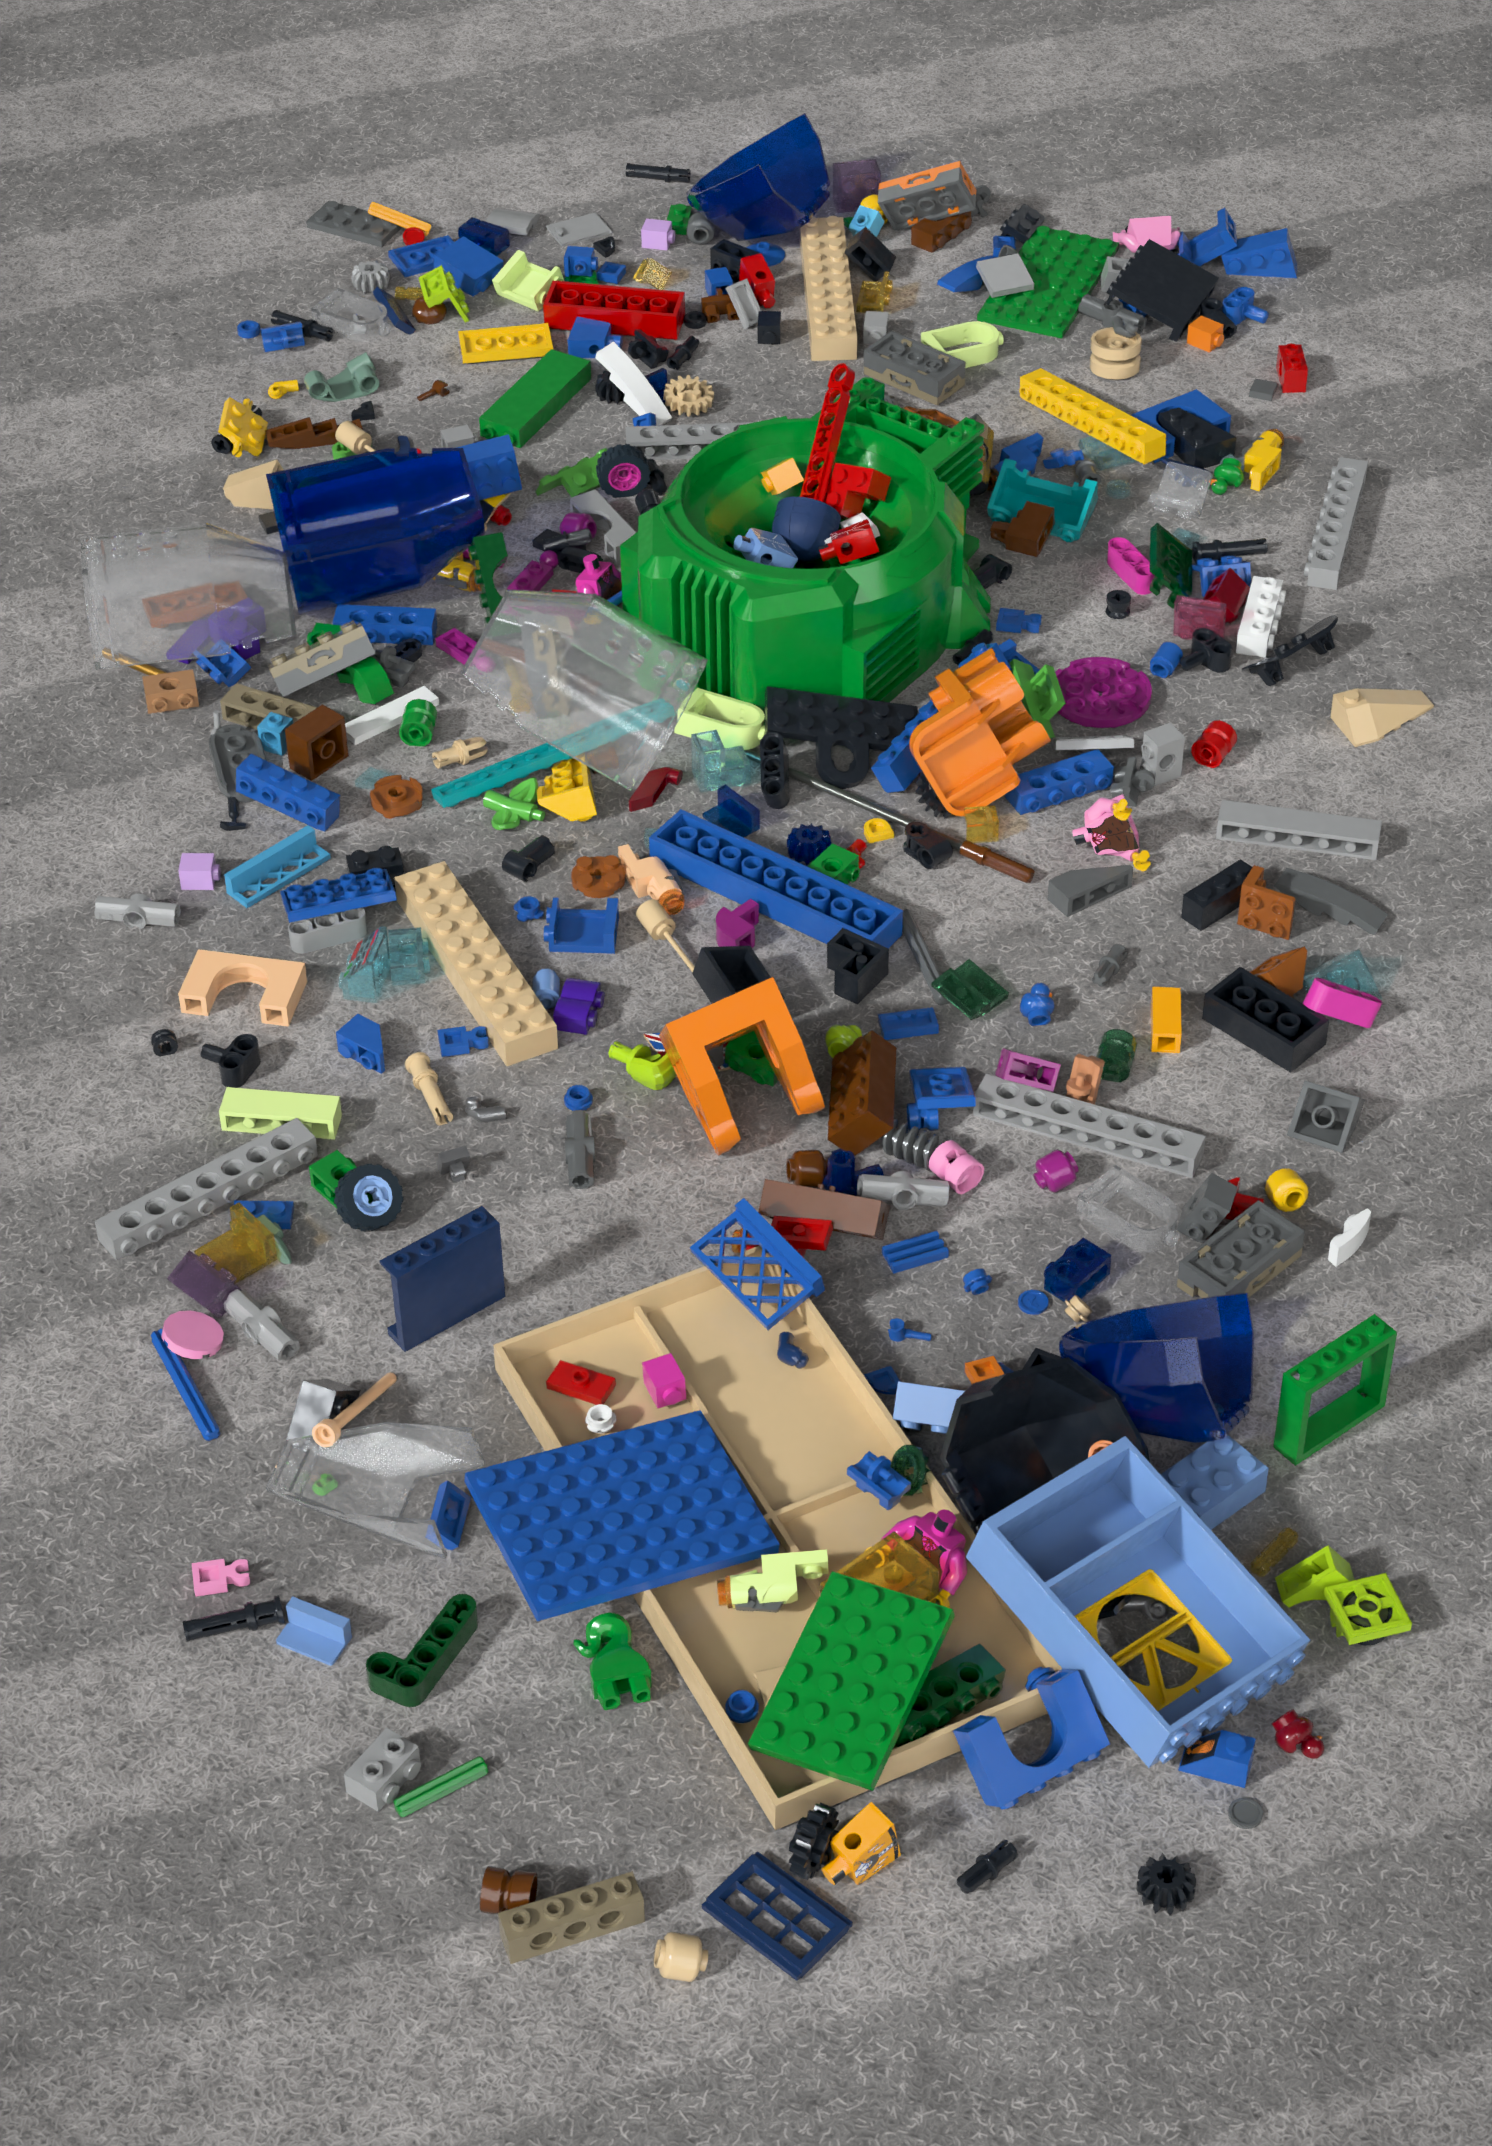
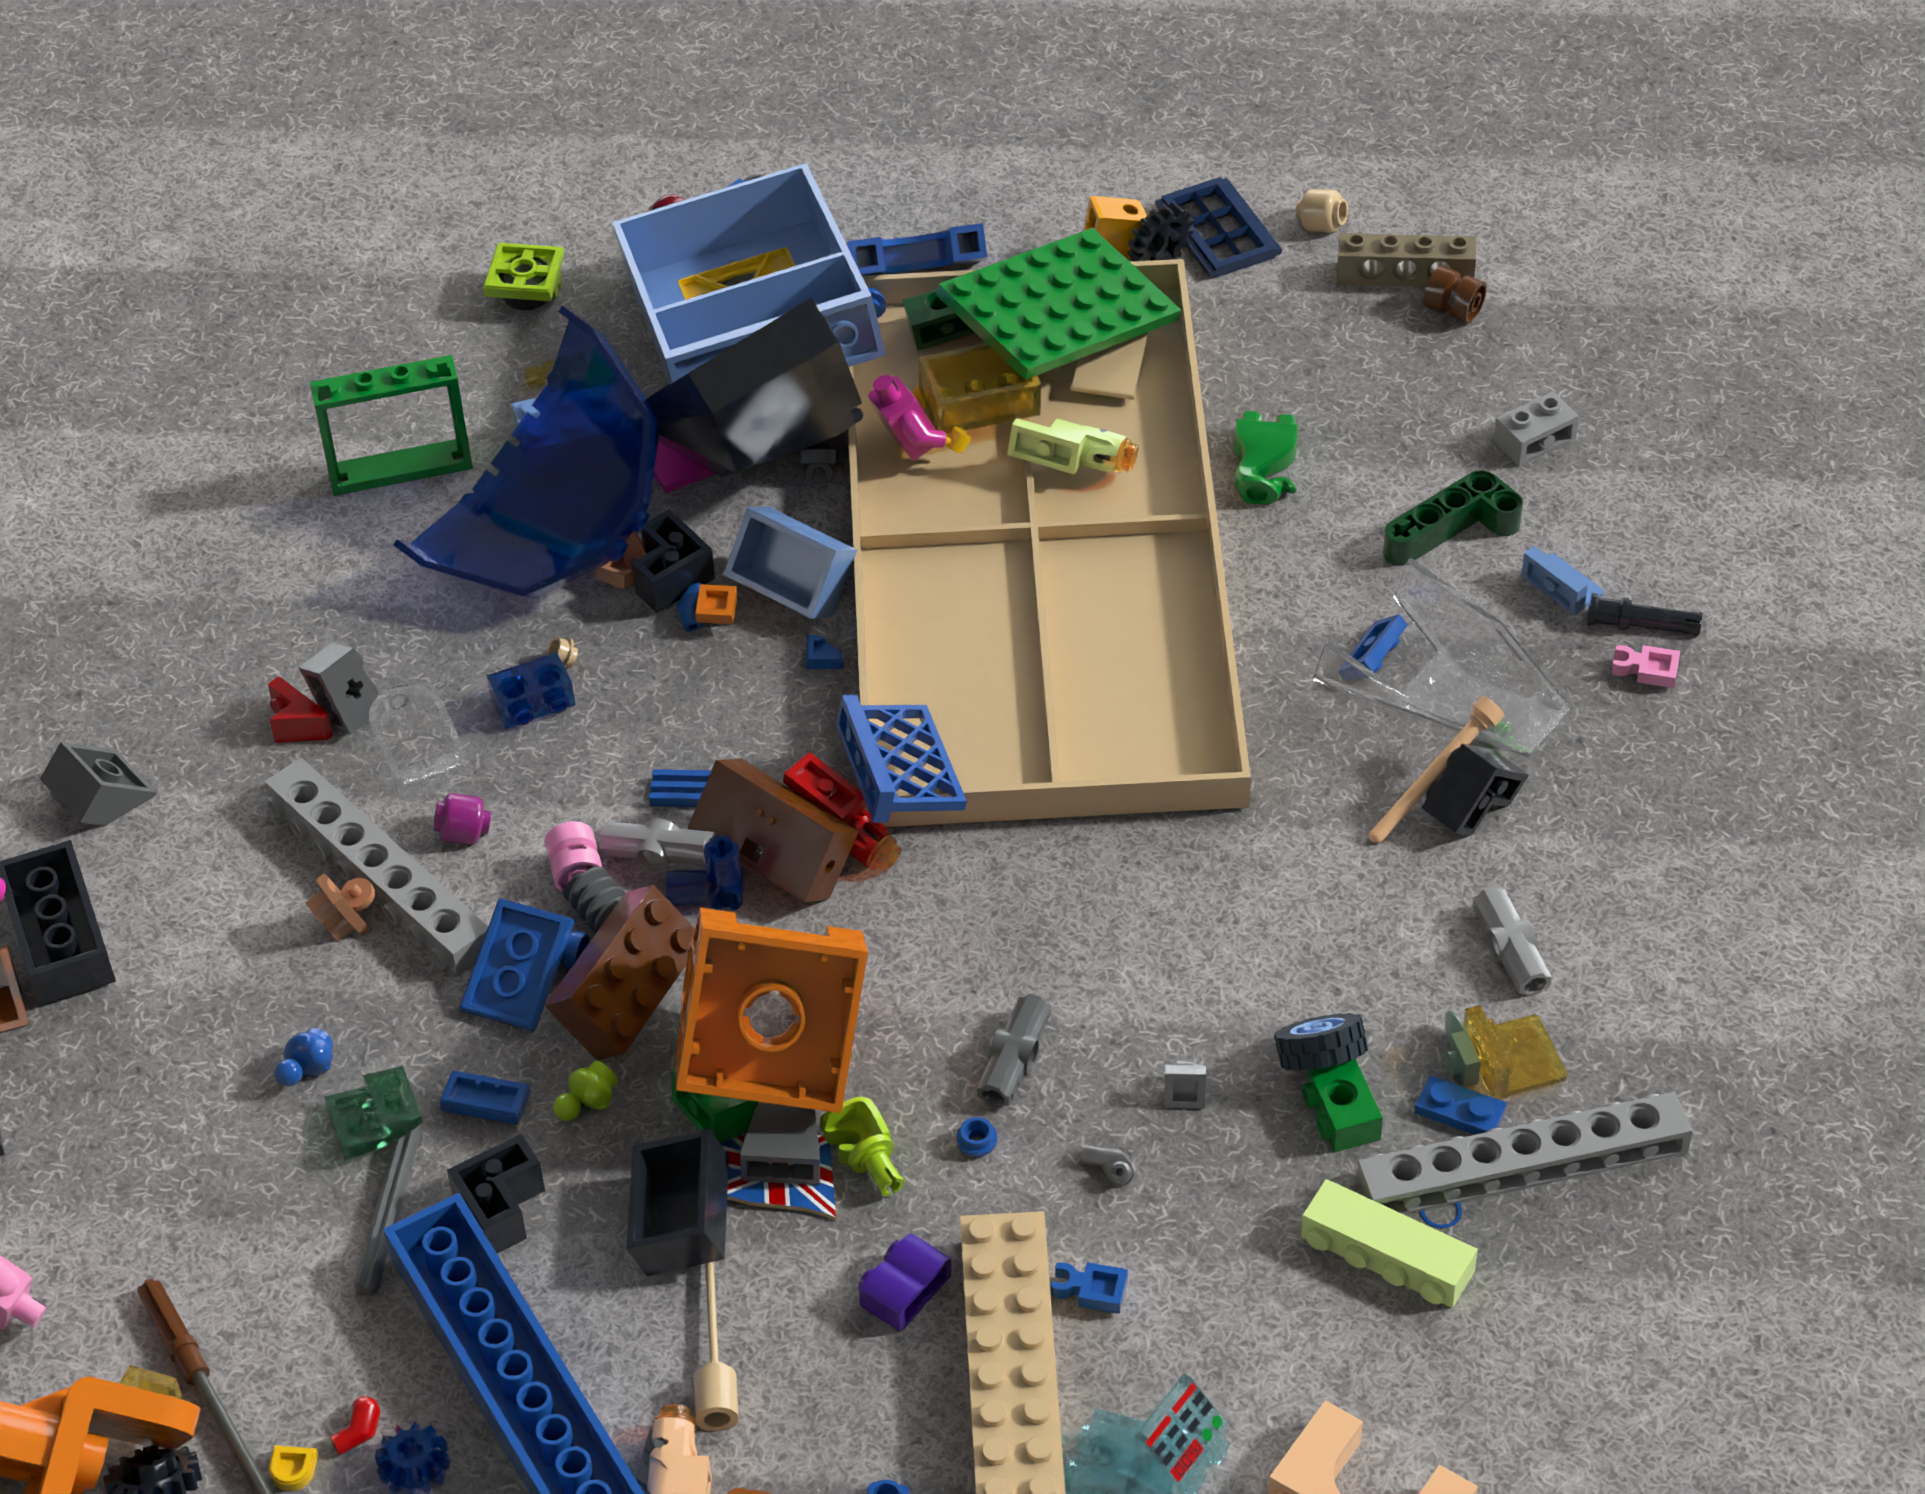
camera: 155 degrees left, 5 degrees up
(160, 1037) = (1518, 1433): black bush -> none
(186, 1388) = (1626, 905): blue axle -> none
(192, 1334) = (1601, 953): bright pink tile -> none
(203, 1282) = (1569, 1005): clear purple brick -> none
(236, 1061) = (1425, 1360): black beam -> none
(362, 1042) = (1231, 1324): blue slope -> none
(426, 1080) = (1168, 1235): tan pin -> none
(440, 1786) = (1476, 409): green axle -> none
(445, 1277) = (1277, 854): dark blue panel -> none
(546, 987) = (934, 1327): medium blue brick -> none
(581, 1383) = (1164, 733): red plate -> none
(582, 929) = (823, 1429): blue panel -> none
(600, 1419) = (1163, 679): white plate -> none
(620, 1514) = (1197, 546): blue plate -> none
(664, 1380) = (1074, 685): dark pink brick -> none
(737, 926) = (618, 1341): magenta brick -> none
(742, 1707) = (1163, 368): blue plate -> none
(790, 1353) = (913, 686): dark blue arm -> none
(807, 1168) = (754, 909): reddish brown head -> none
(837, 864) = (442, 1391): green brick -> none
(876, 1476) = (912, 496): blue hips -> none
(899, 1333) = (764, 698): blue hand -> none
(908, 1457) = (871, 502): clear green gear -> none
(926, 845) = (252, 1392): black piece -> none
(977, 1281) = (643, 730): blue plate -> none
(987, 1866) = (1013, 203): black axle -> none
(1024, 1067) = (402, 945): magenta torso -> none
(1033, 1302) = (599, 691): blue piece -> none
(1086, 887) = (94, 1226): dark grey slope -> none
(1109, 965) = (166, 1093): dark grey axle -> none
(1117, 1051) = (267, 947): clear green wheel -> none
(1166, 1019) = (166, 979): light orange brick -> none
(1166, 1884) = (869, 145): black gear -> none
(1242, 1255) = (375, 620): dark grey piece -> none
(1286, 1190) = (224, 707): yellow head -> none
(1311, 1576) = (536, 316): lime arch -> none
(1354, 1234) = (194, 634): white slope -> none

